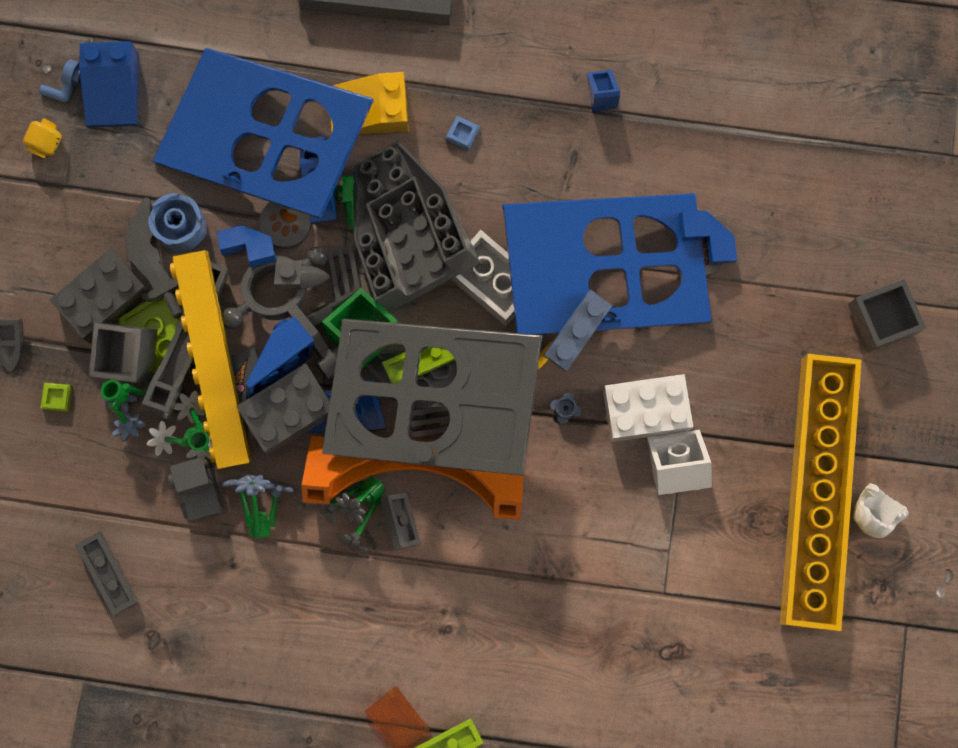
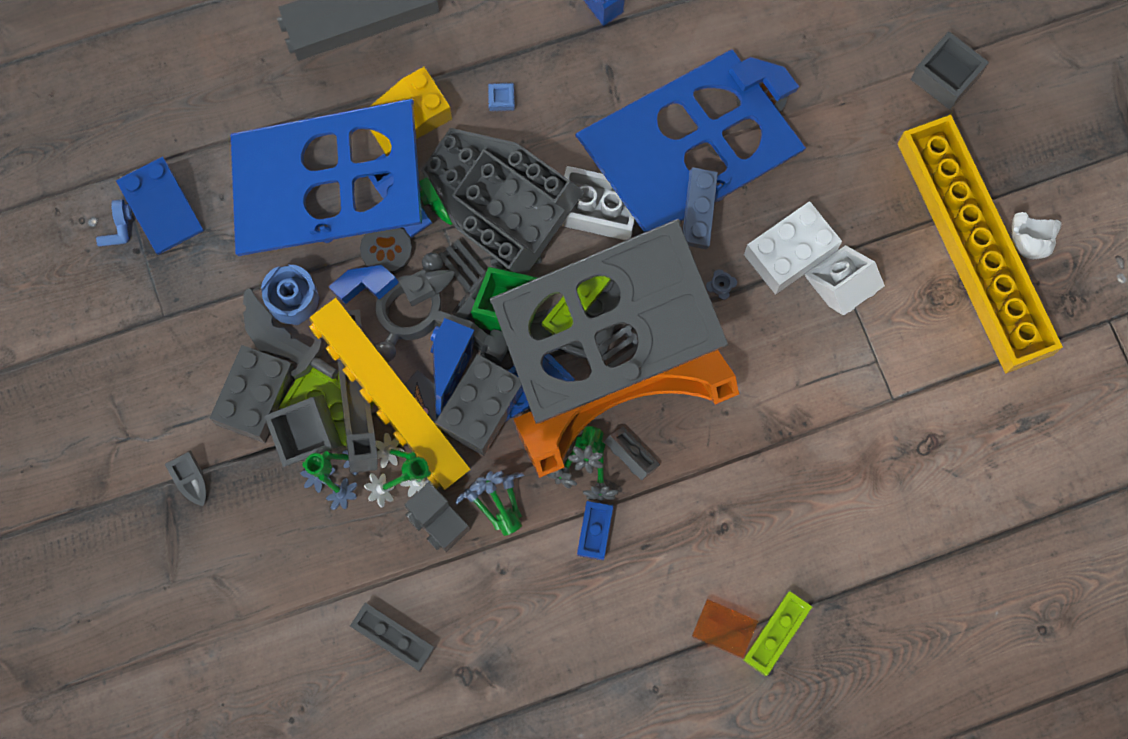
camera: 30 degrees left, 5 degrees down
(42, 138) = (123, 282): yellow head -> none
(56, 397) = (259, 505): lime tile -> none
(330, 573) = (595, 530): none -> blue plate

